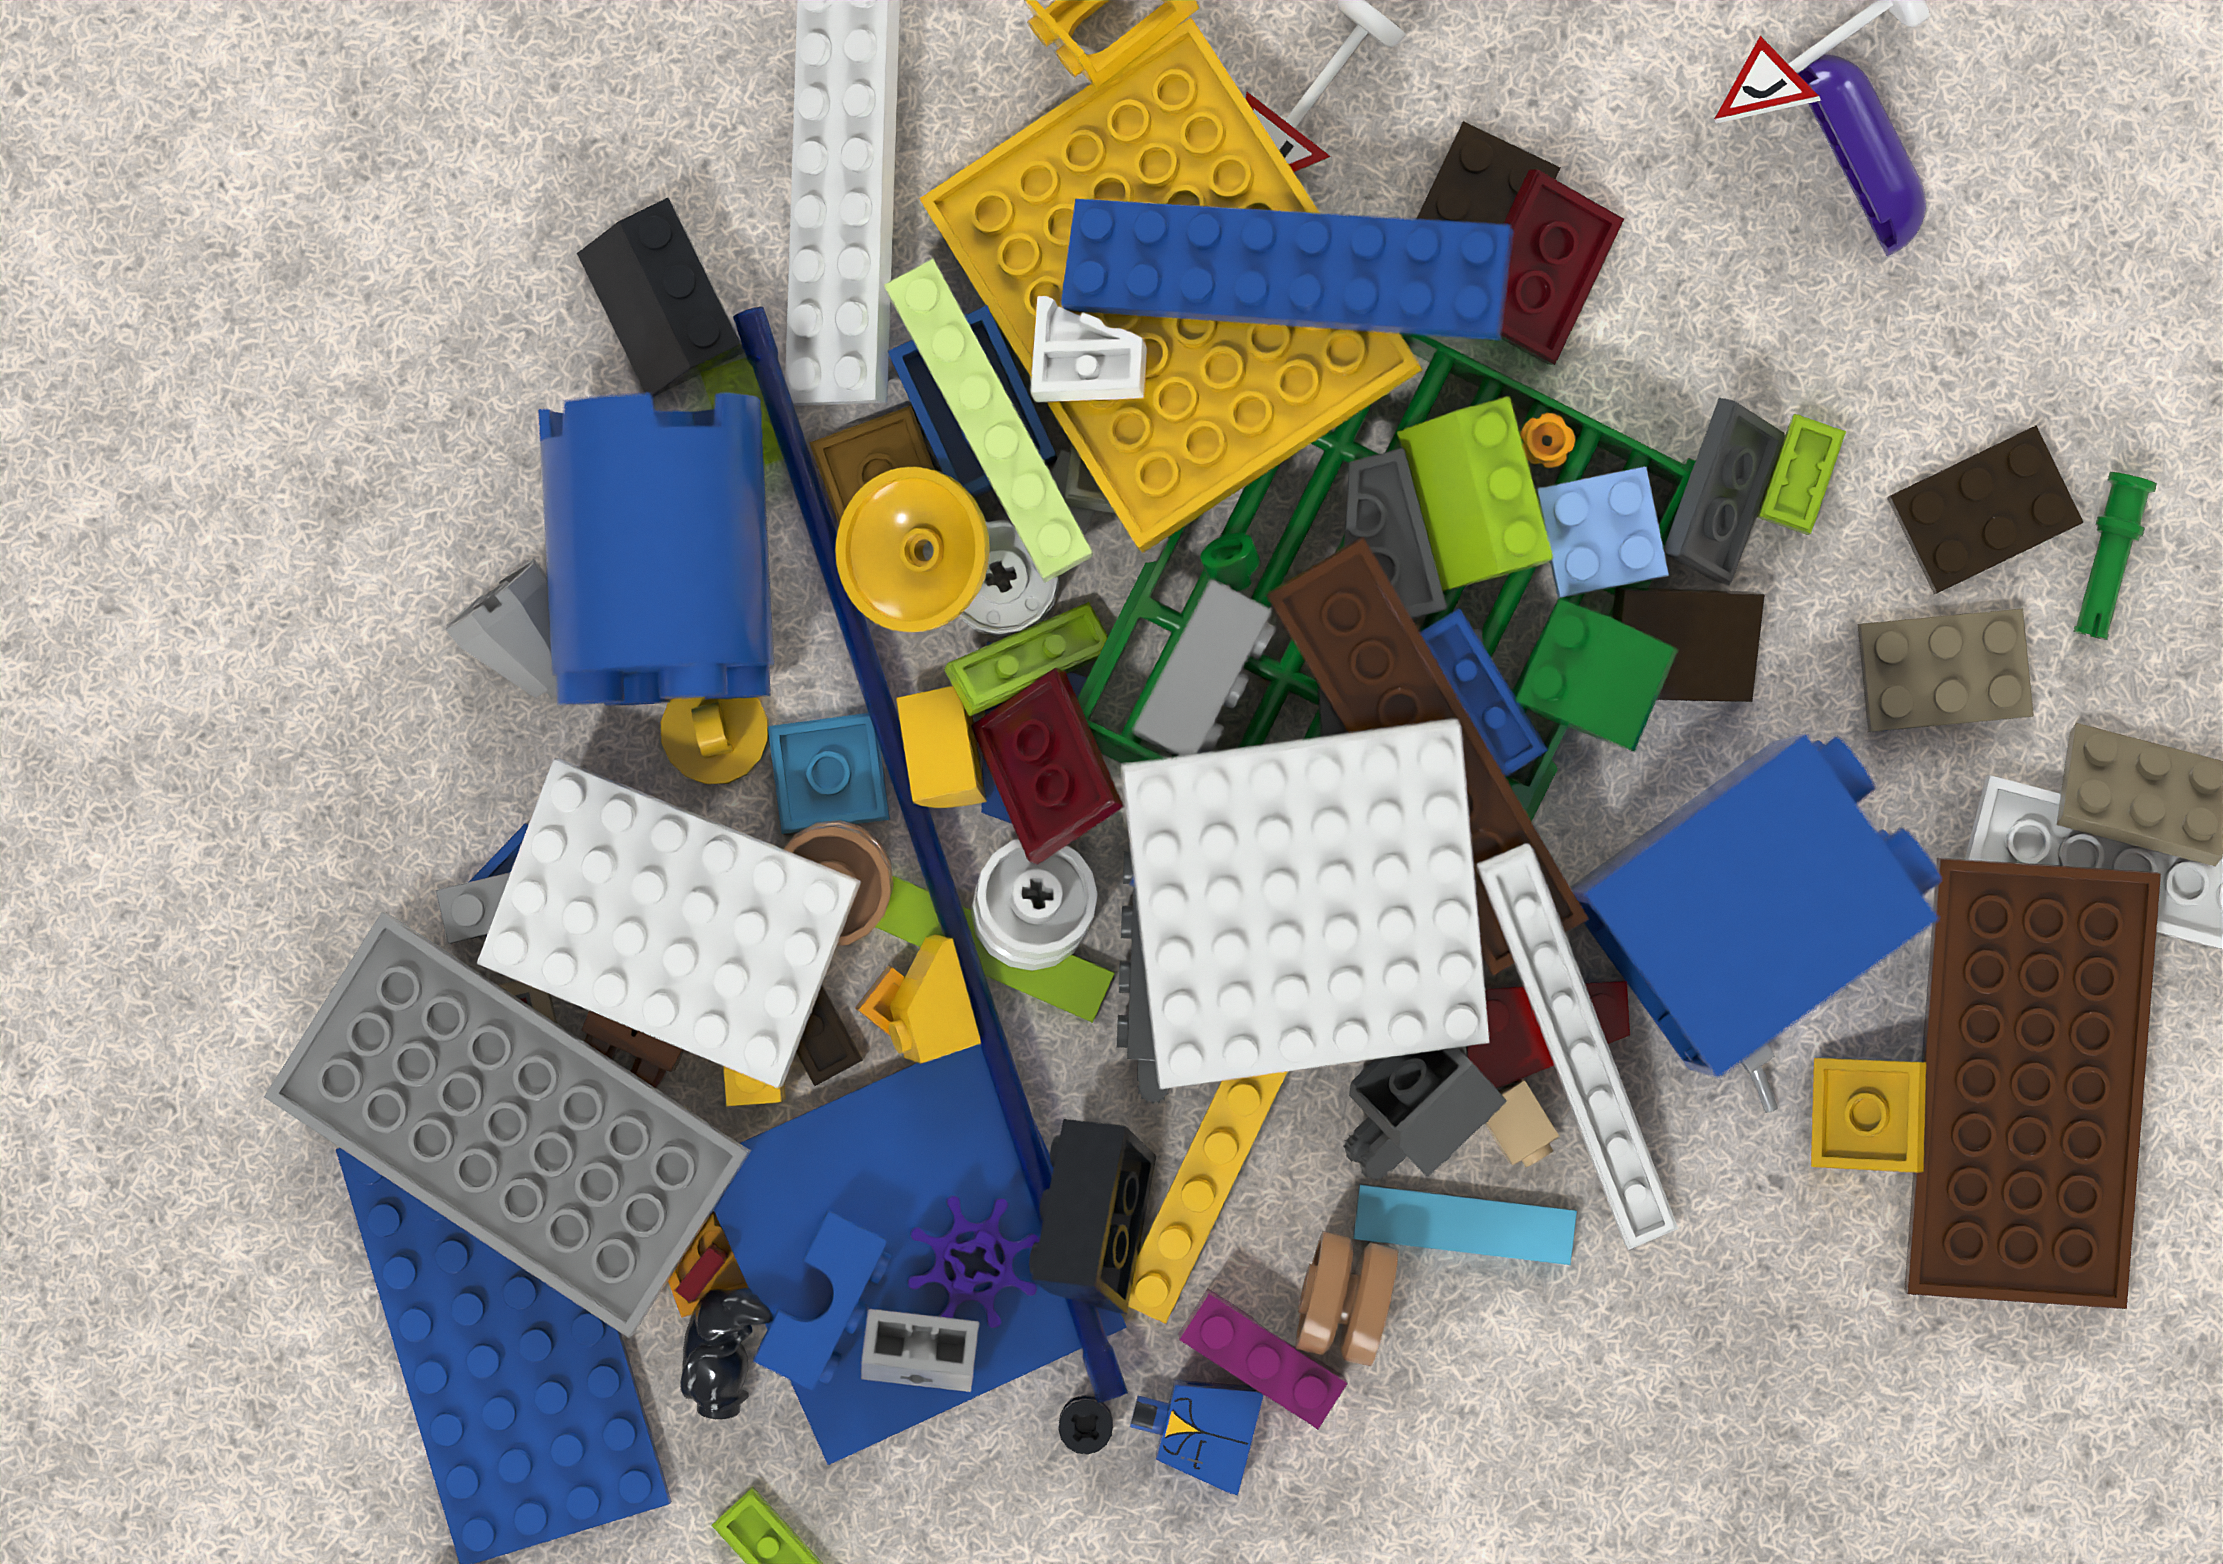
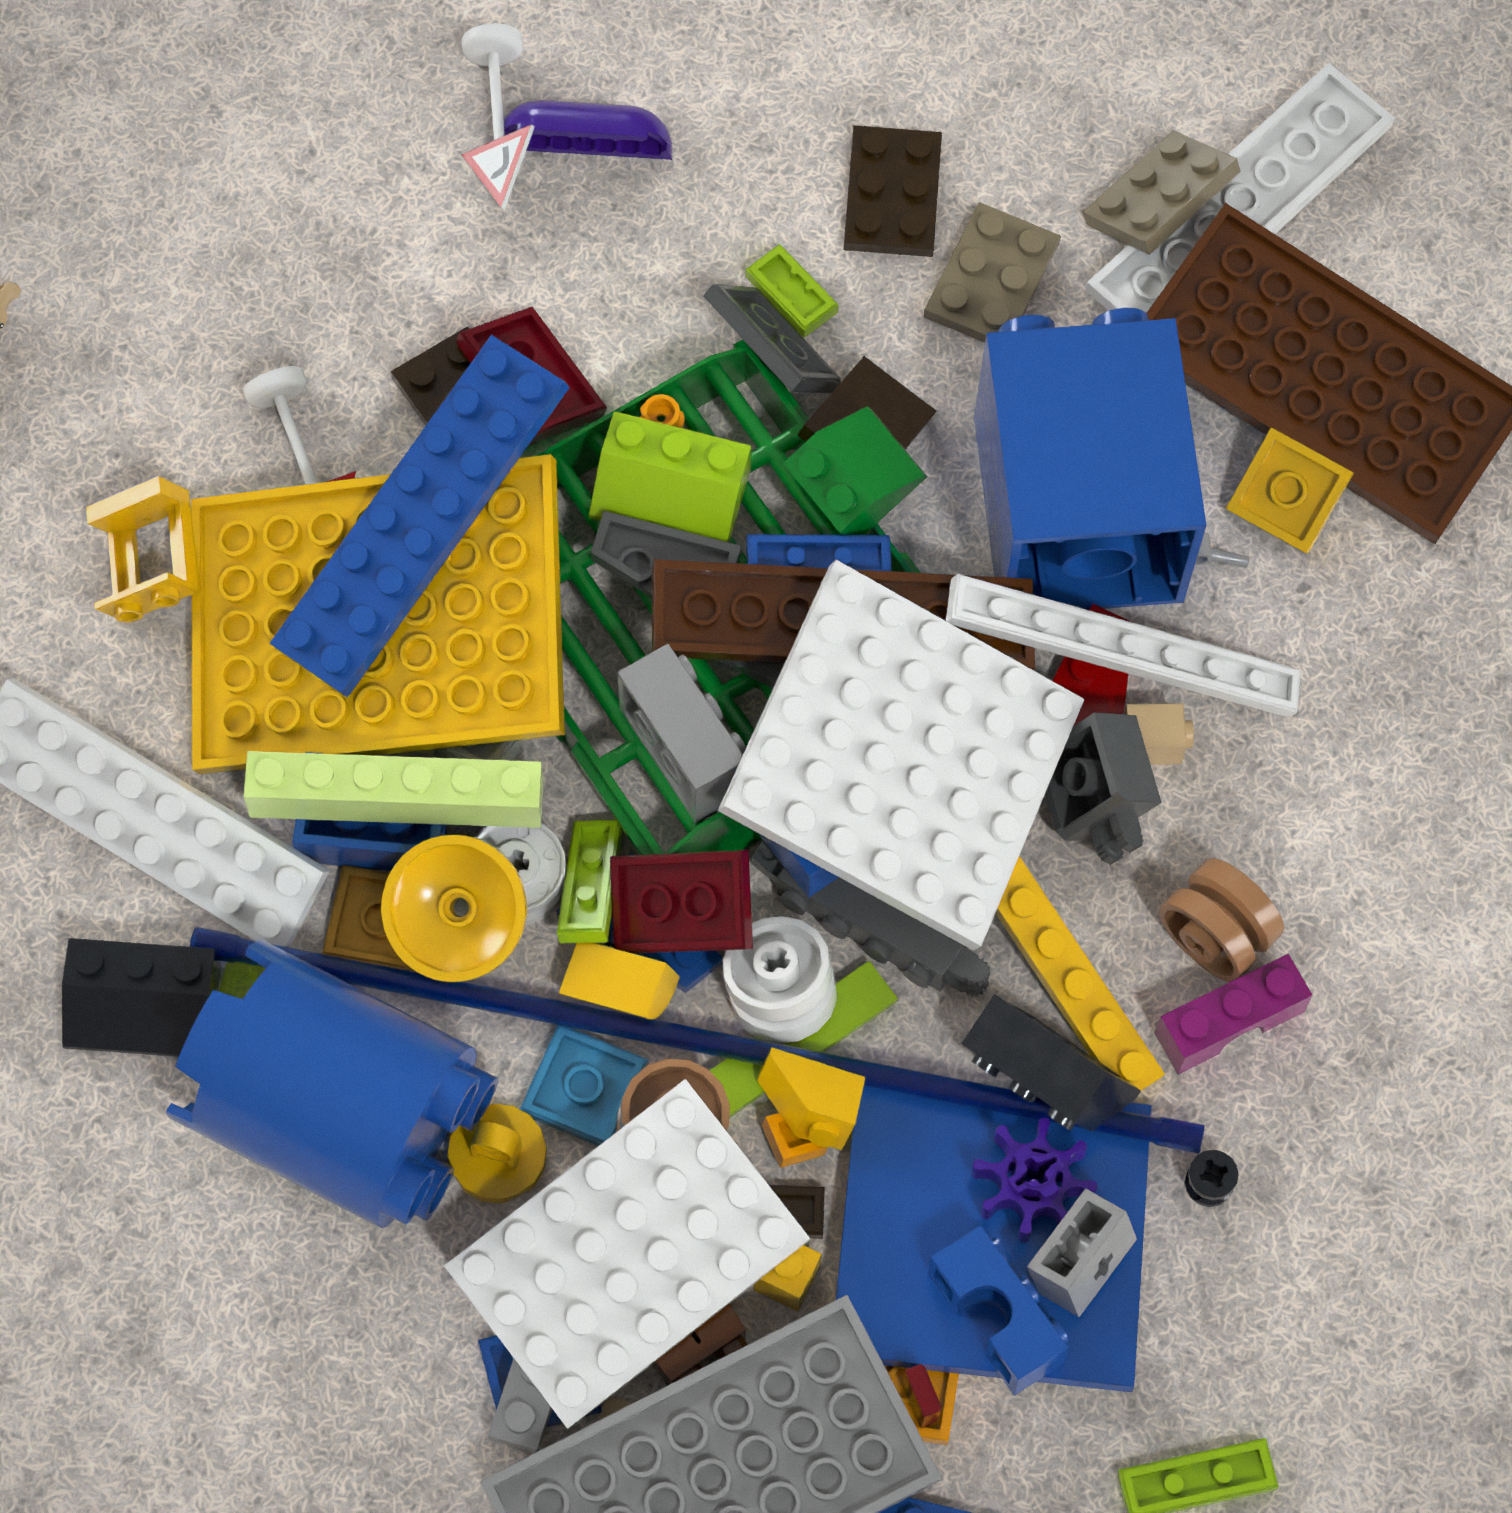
camera: 65 degrees left, 20 degrees down
(511, 630) = (325, 1249): light grey cone -> none
(713, 1352) = (982, 1427): black animal -> none
(1084, 358) = (392, 694): white wing -> none
(1203, 1429) = (1266, 1090): blue torso -> none
(1231, 560) = (603, 674): green tile -> none
(1464, 1224) = (1212, 815): medium azure tile -> none
(1602, 532) = (757, 413): light blue plate -> none
(2118, 530) = (961, 113): green pin -> none

